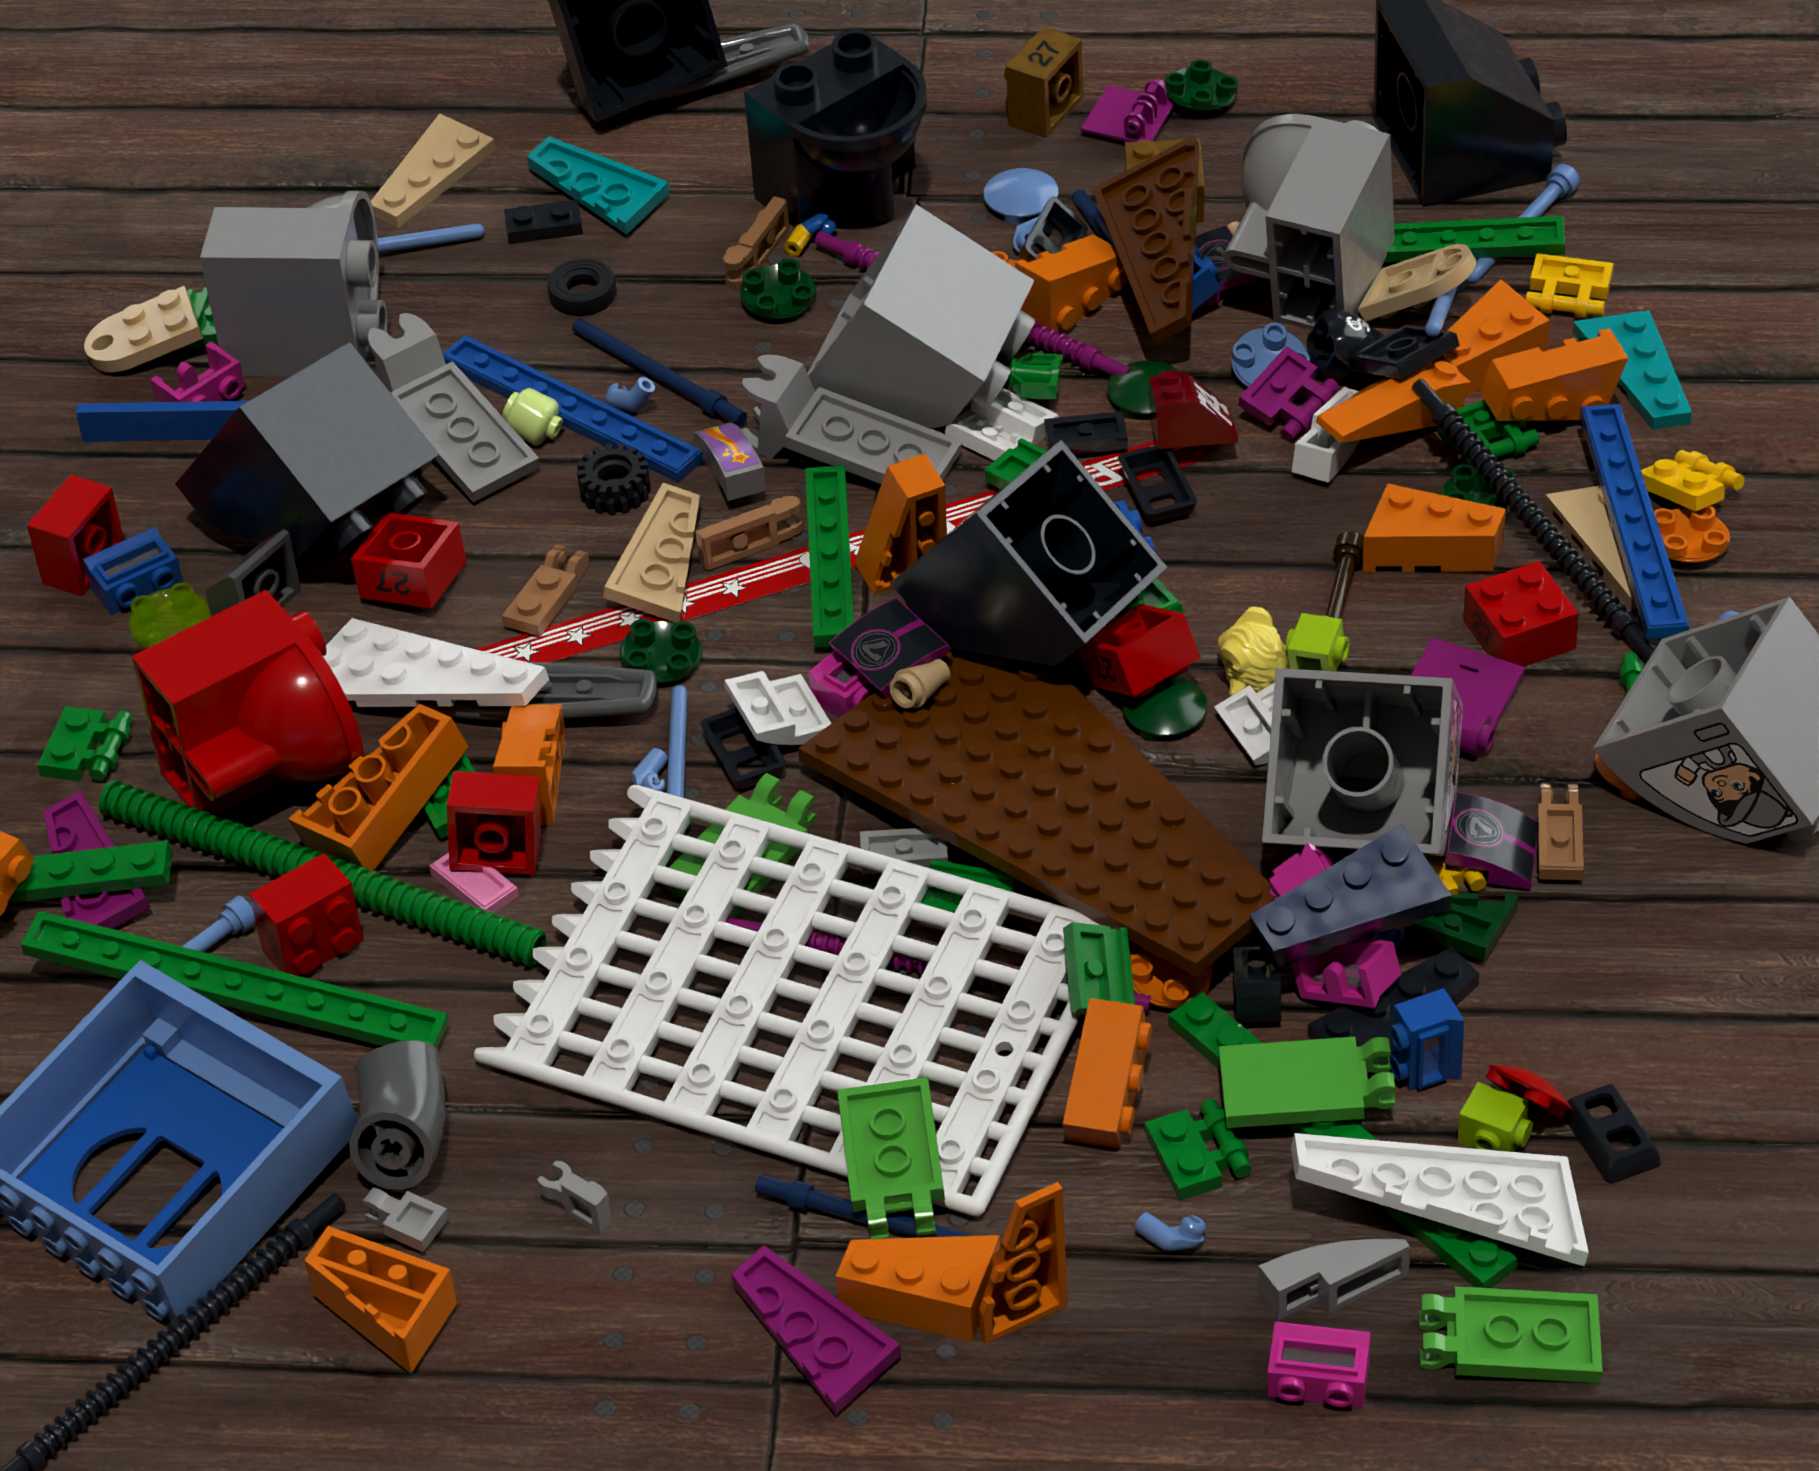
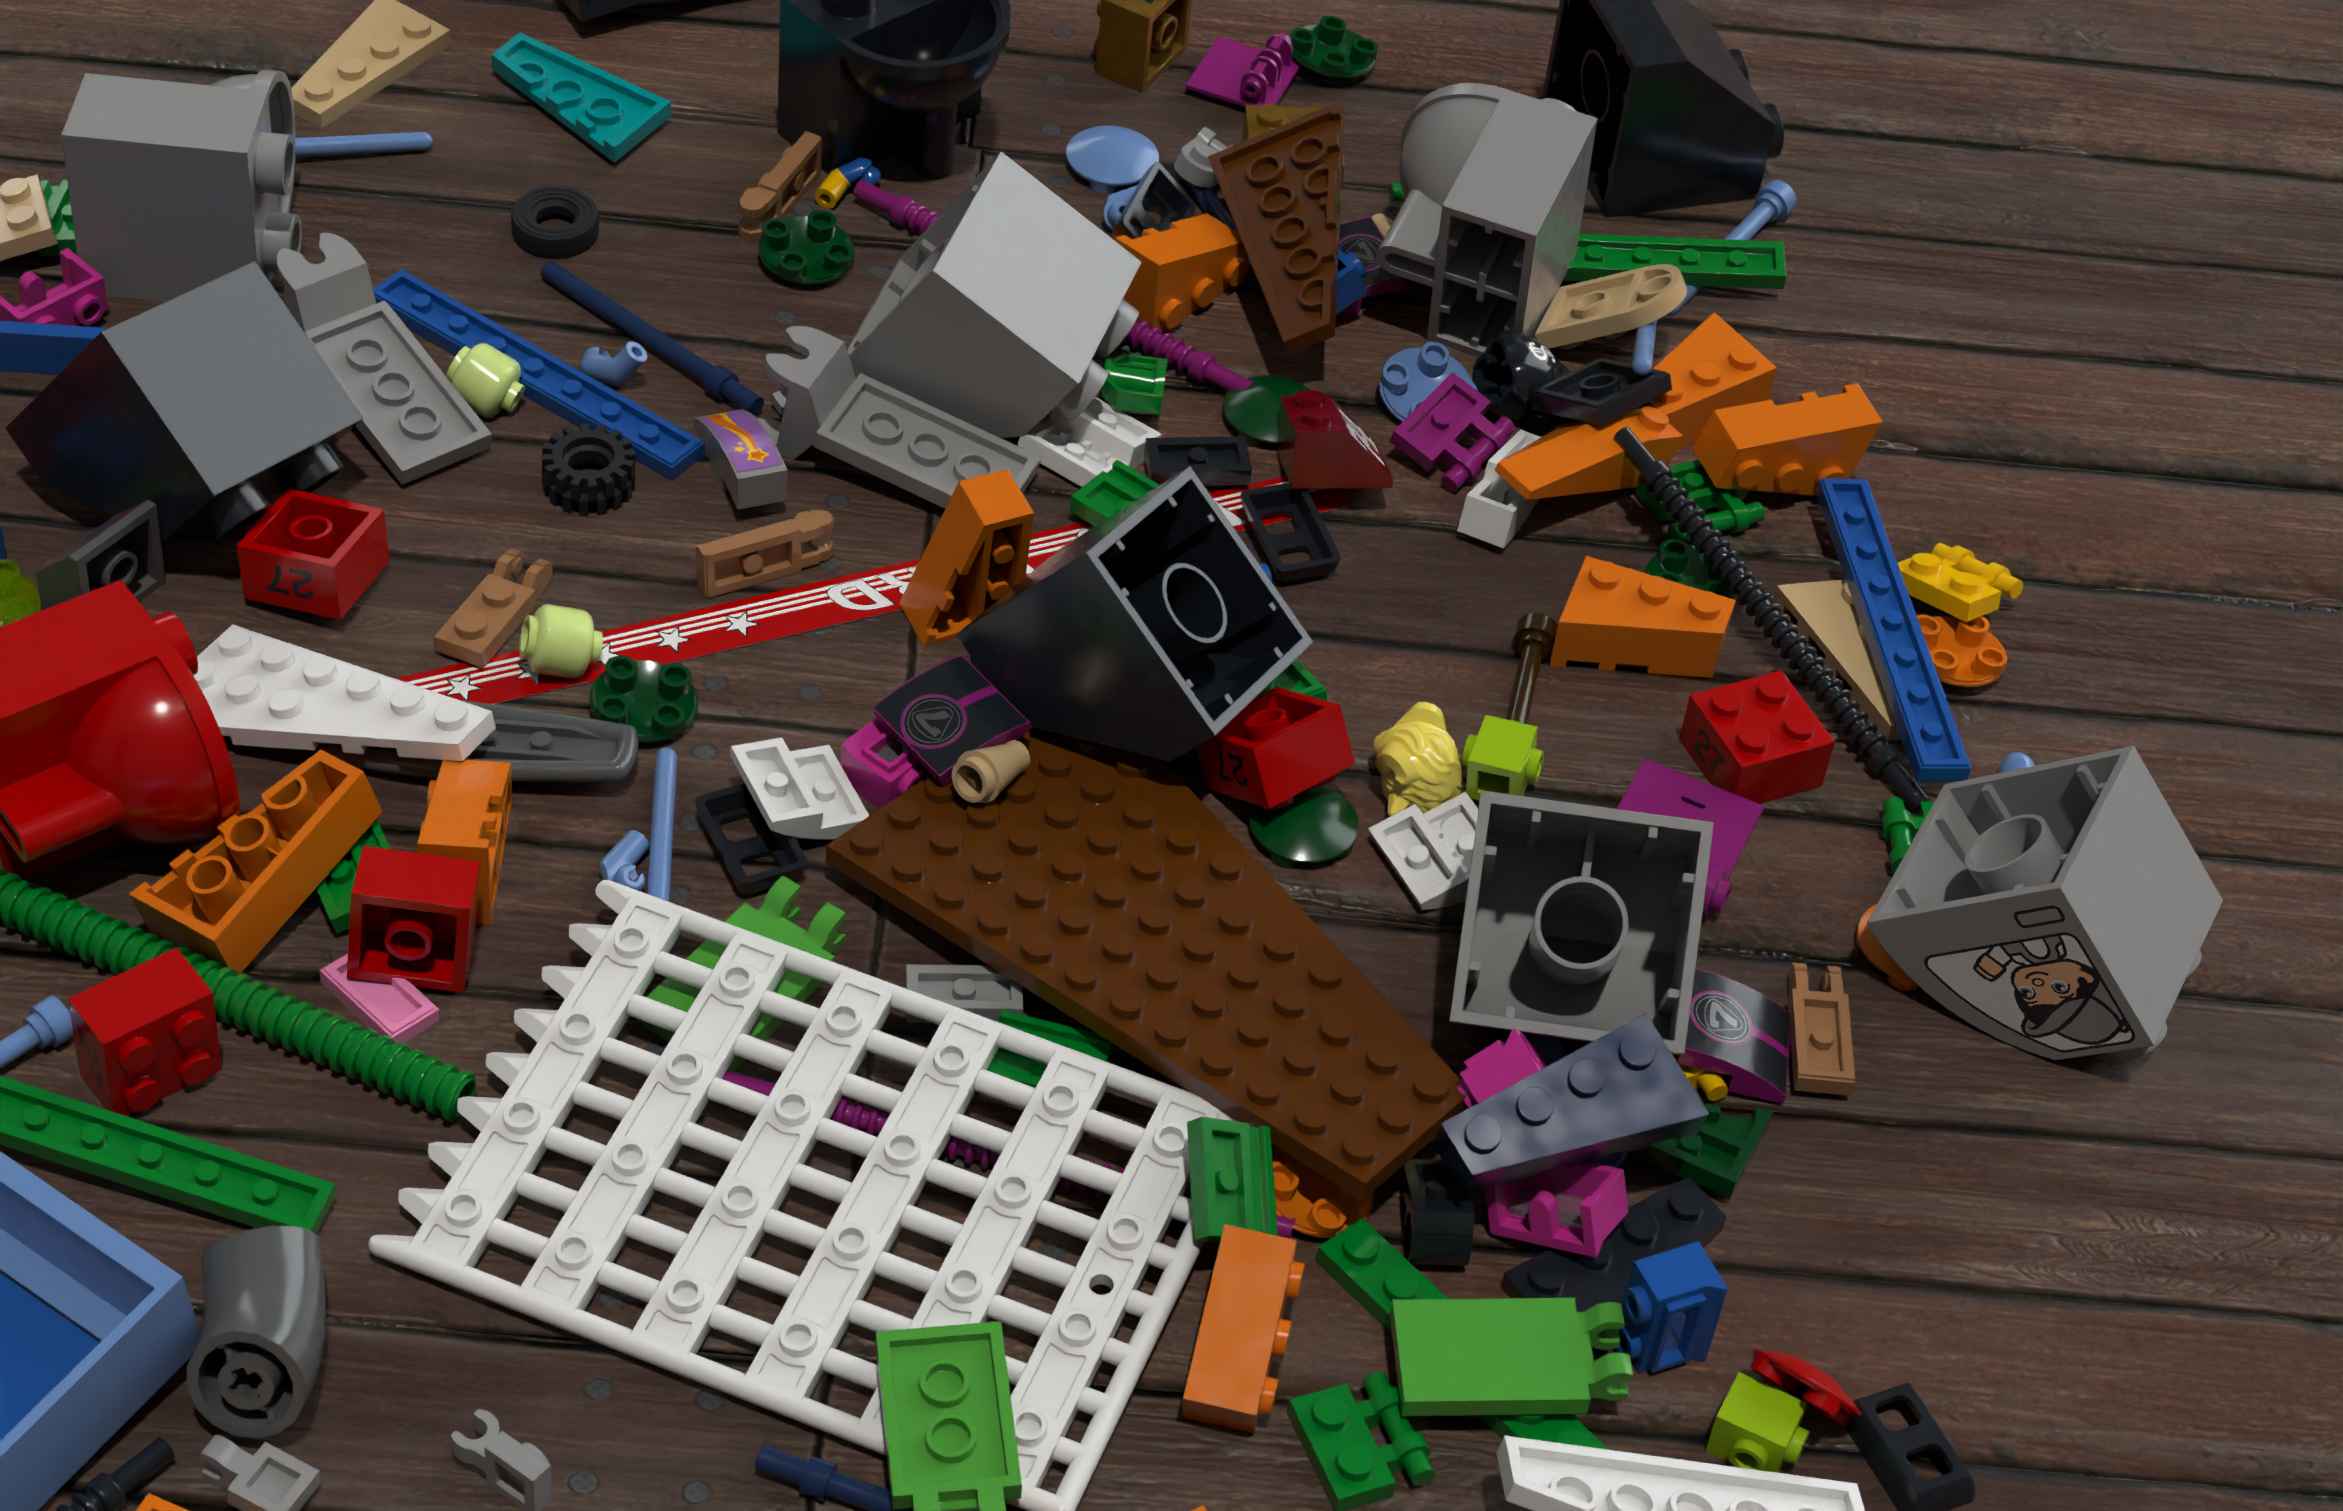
camera: 10 degrees left, 0 degrees up
(543, 221) = (508, 137): black plate -> none
(595, 611) = (560, 641): none -> yellowish green head
(657, 559) = (644, 574): tan wing -> none
(829, 552) = (868, 590): green plate -> none
(1082, 193) = (1194, 162): none -> light grey plate
(1571, 277) = (1793, 318): yellow plate -> none
(1648, 373) = (1897, 454): teal wing -> none

